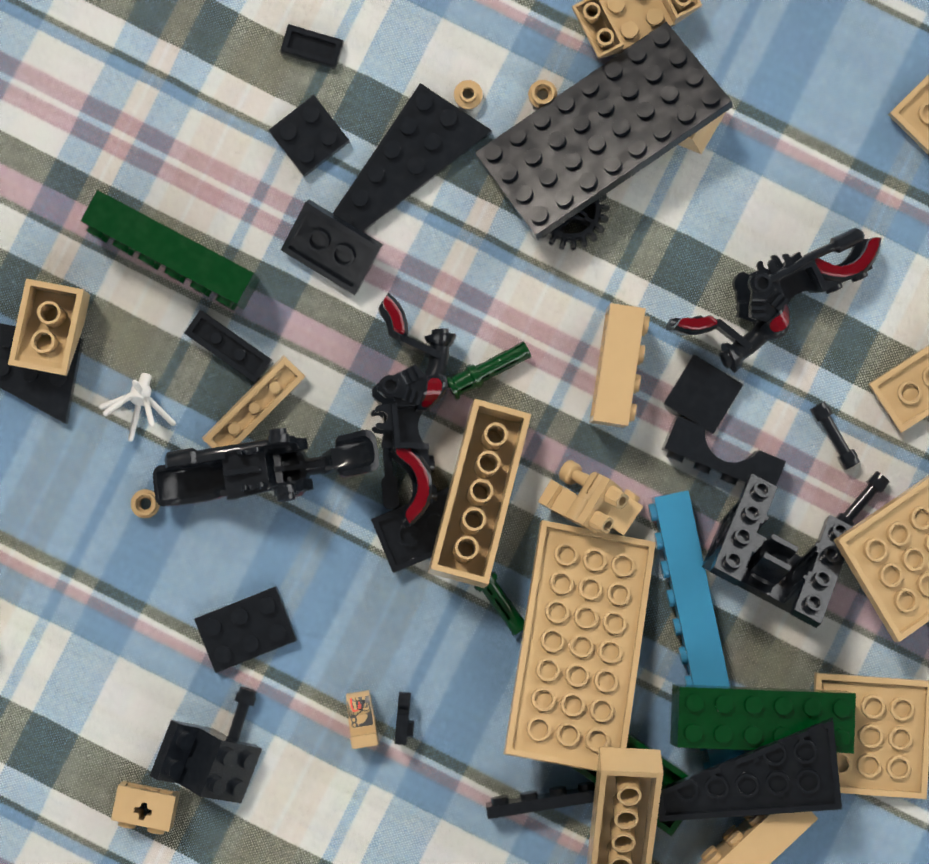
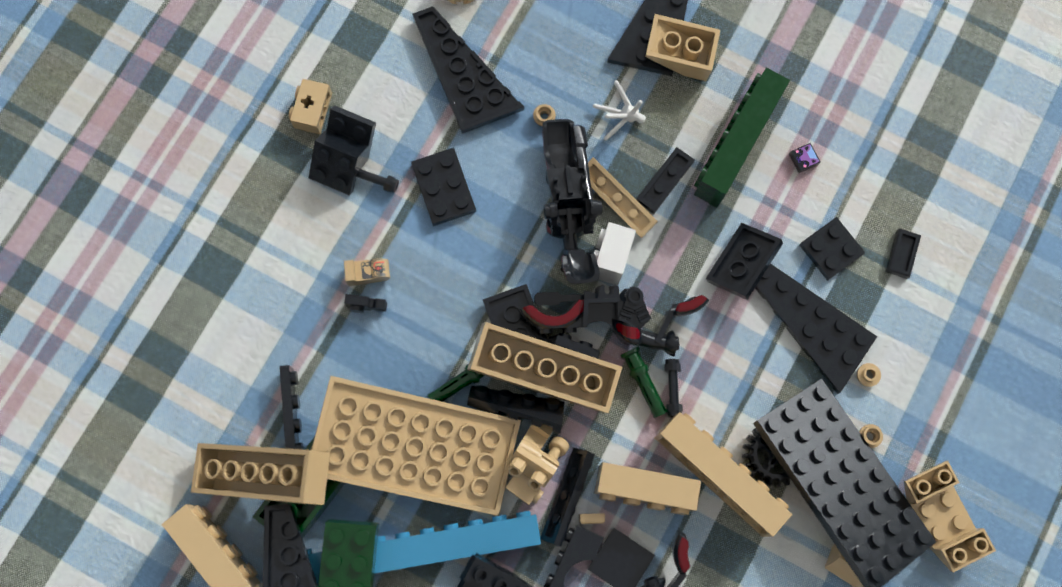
camera: 85 degrees right, 10 degrees down
(104, 604) = (466, 80): none -> black wing
(190, 168) = (804, 158): none -> tile
(329, 411) = (614, 251): none -> white brick
(445, 469) = (565, 341): none -> black plate
(468, 335) = (672, 367): none -> black bar
(525, 512) = (528, 406): none -> black wing
(600, 274) = (724, 476): none -> tan brick
(630, 460) = (567, 496): none -> black plate
(654, 430) = (592, 518): none -> tan tile

